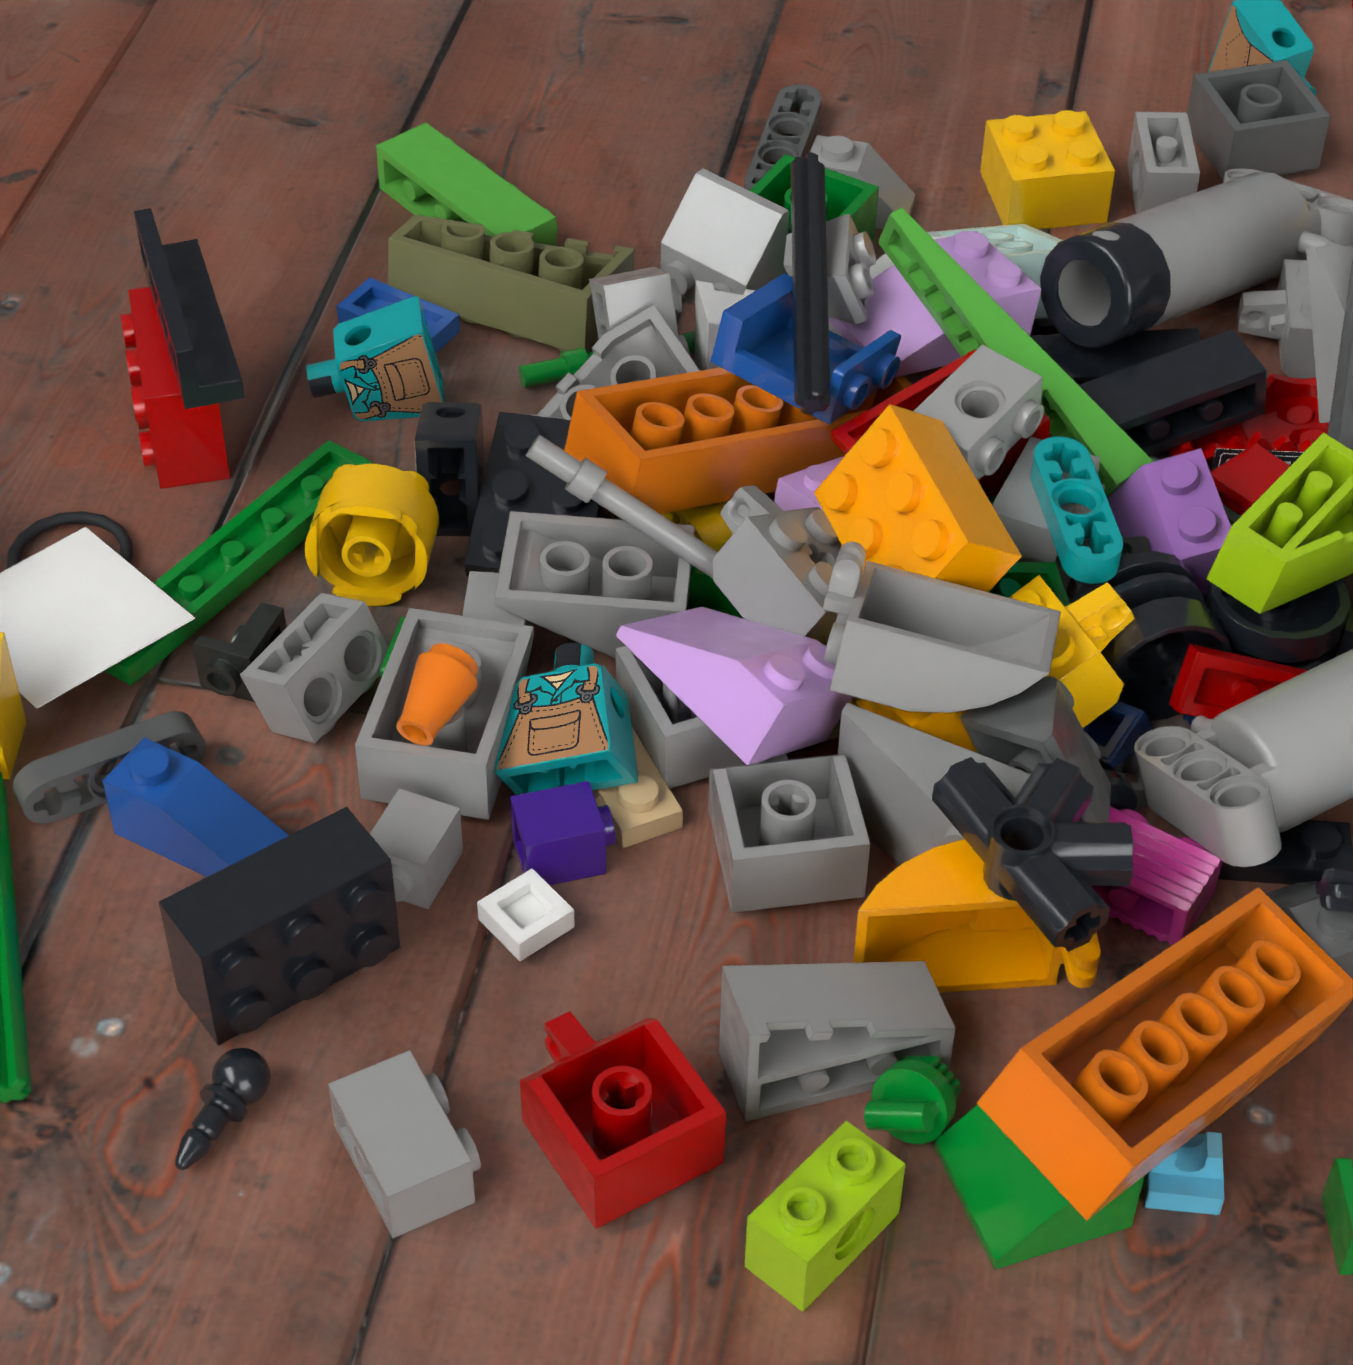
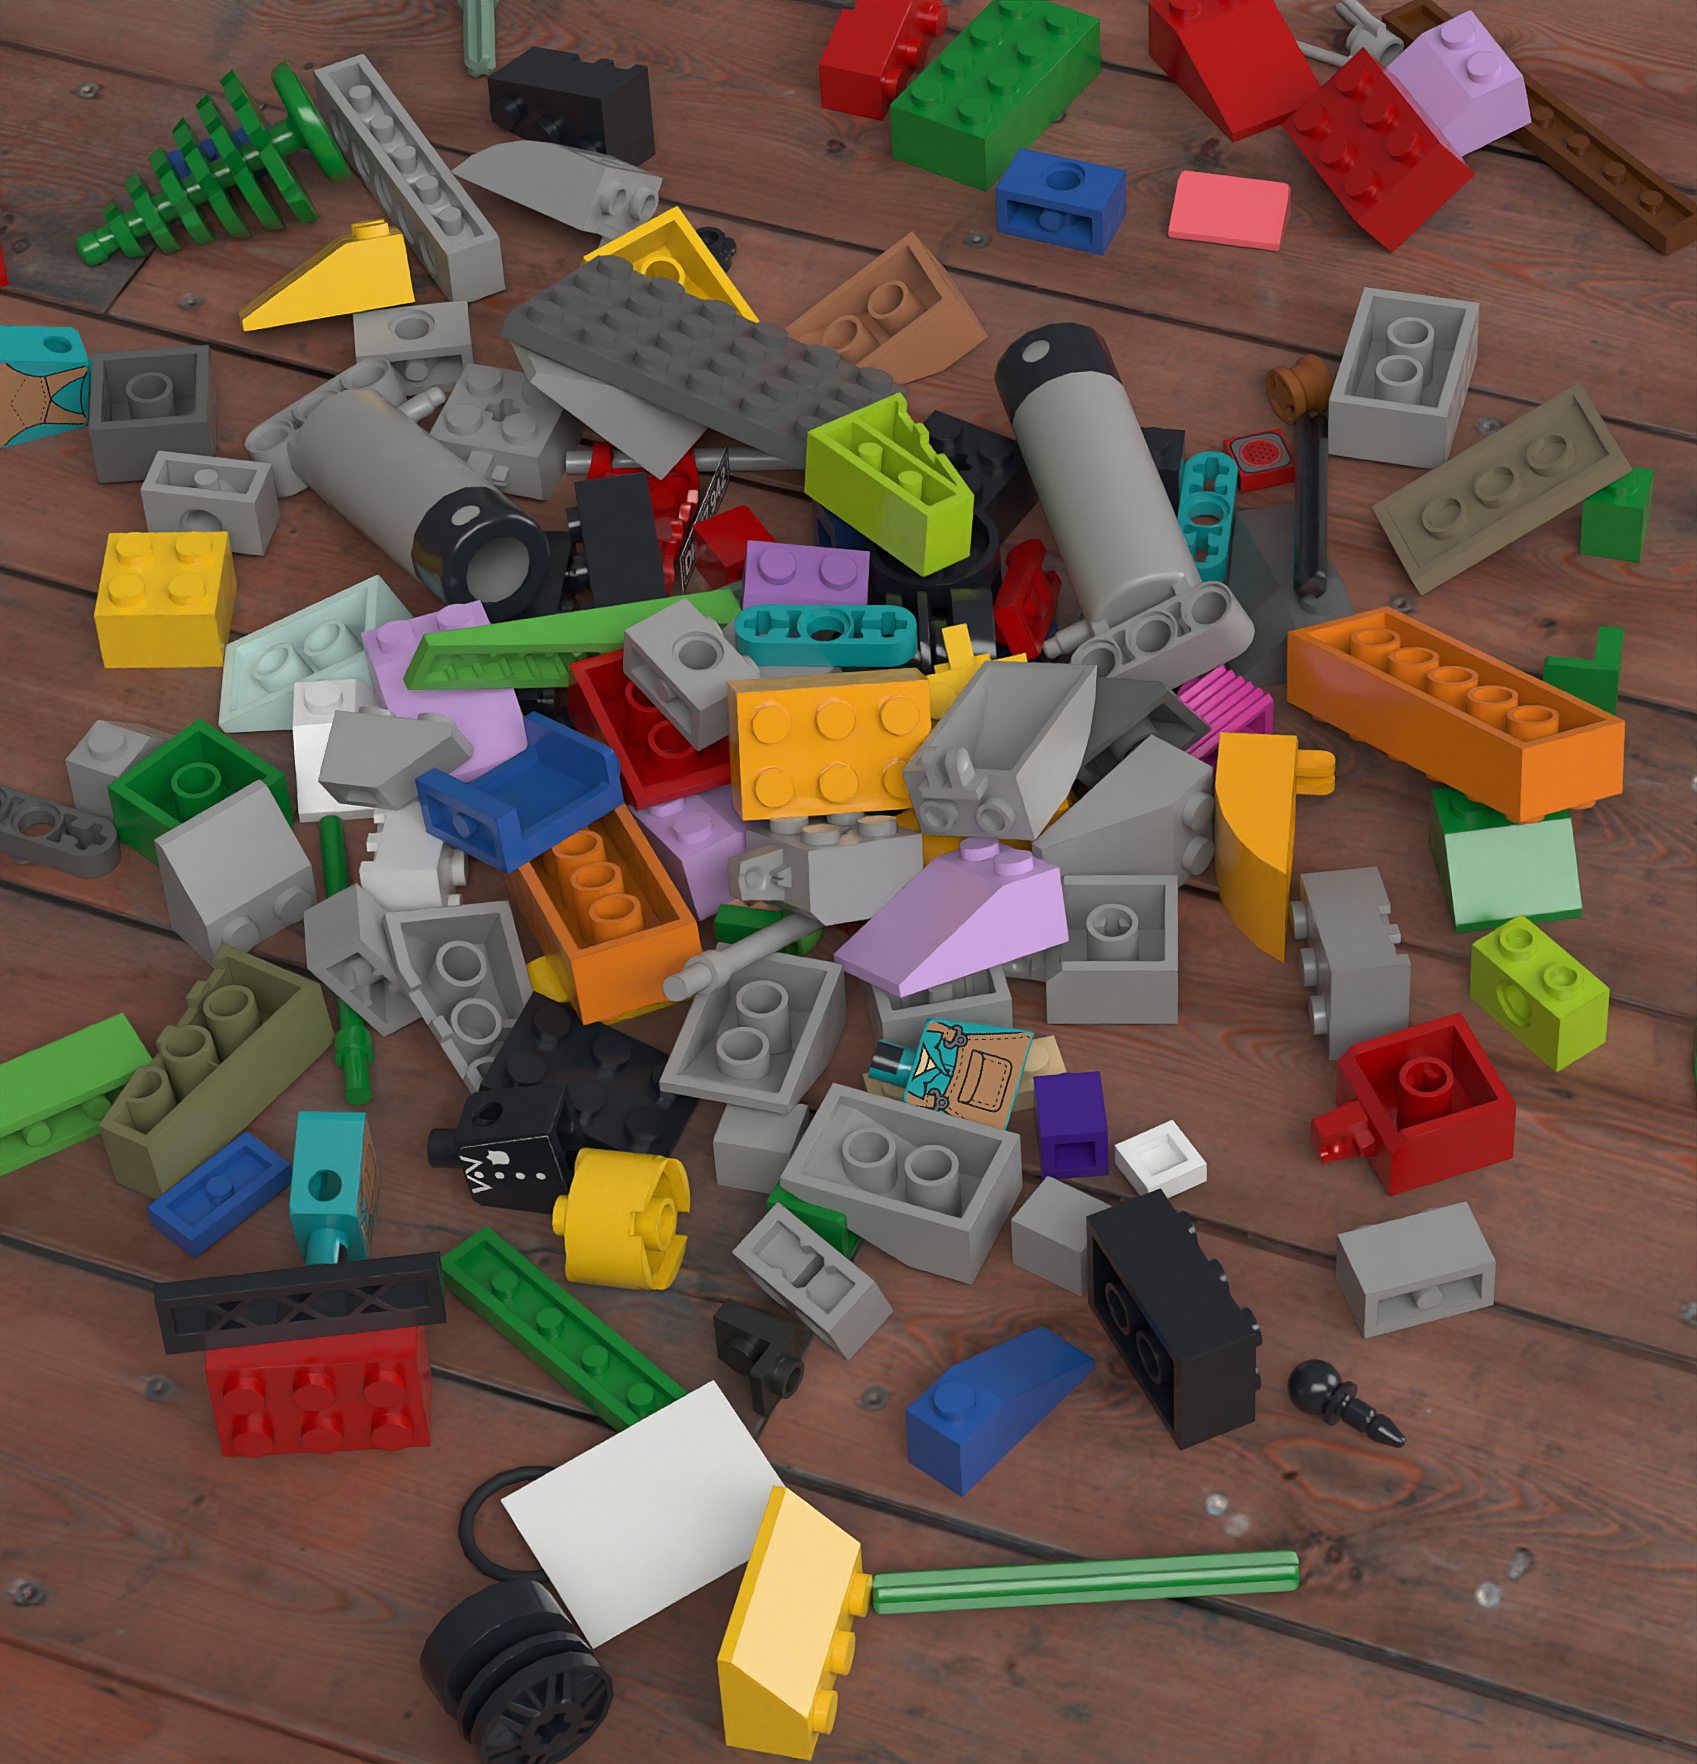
camera: 75 degrees left, 0 degrees up
(84, 760) = (894, 1477): dark grey beam -> none
(437, 690) = (934, 1144): orange cone -> none
(810, 285) = (450, 753): black axle -> none
(913, 1099) = (1427, 922): green piece -> none
(1038, 847) = (1261, 734): black piece -> none

